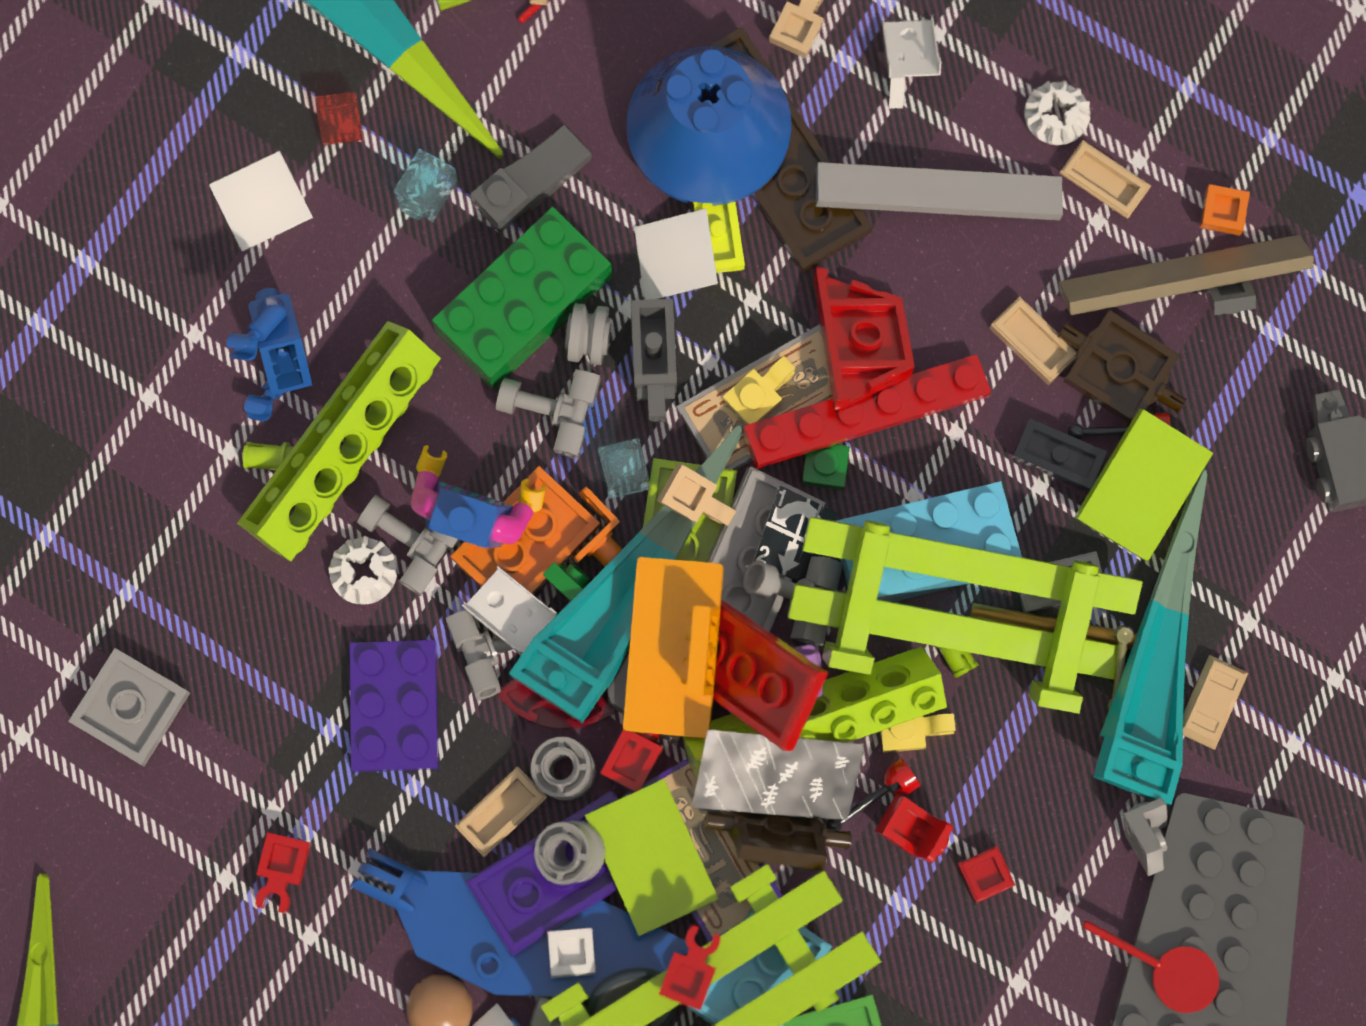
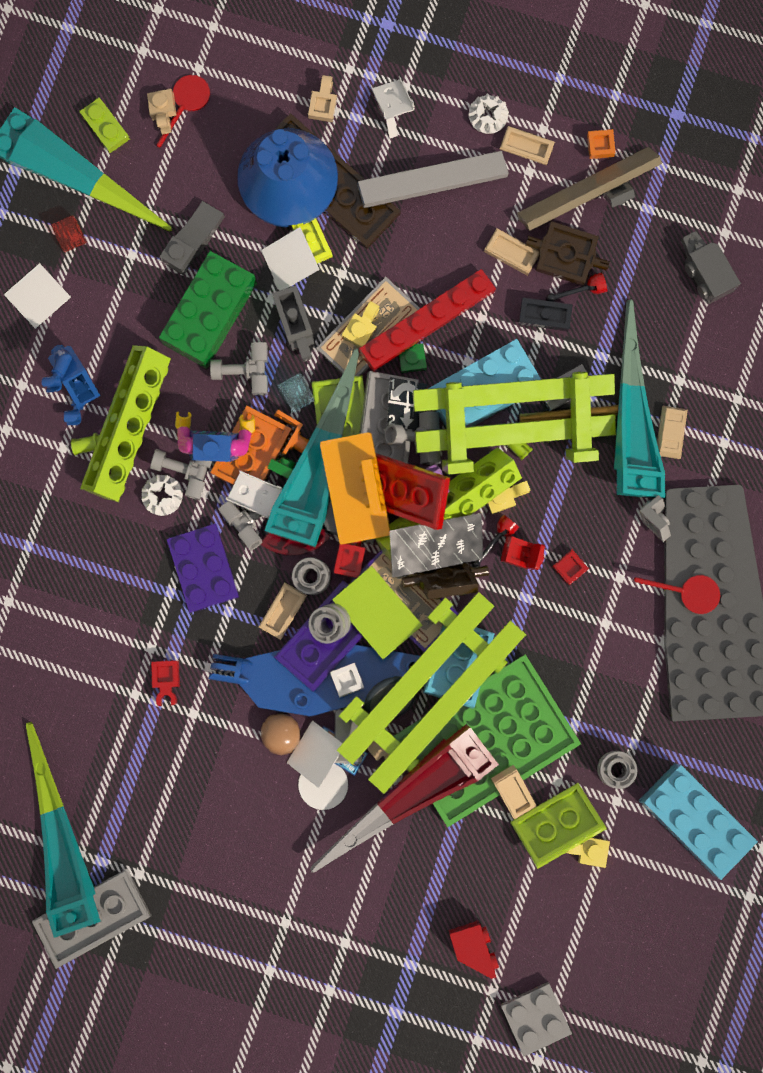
camera: 15 degrees left, 5 degrees up
(129, 707) = (49, 612): light grey plate -> none
(425, 186) = (131, 259): clear light blue brick -> none
(588, 334) = (252, 320): light grey wheel -> none
(688, 975) = (419, 675): red plate -> none
(692, 495) = (340, 398): tan plate -> none
(862, 338) = (412, 277): red wing -> none
(1123, 636) = (611, 408): olive hinge -> none
(1143, 485) = (599, 317): lime tile -> none

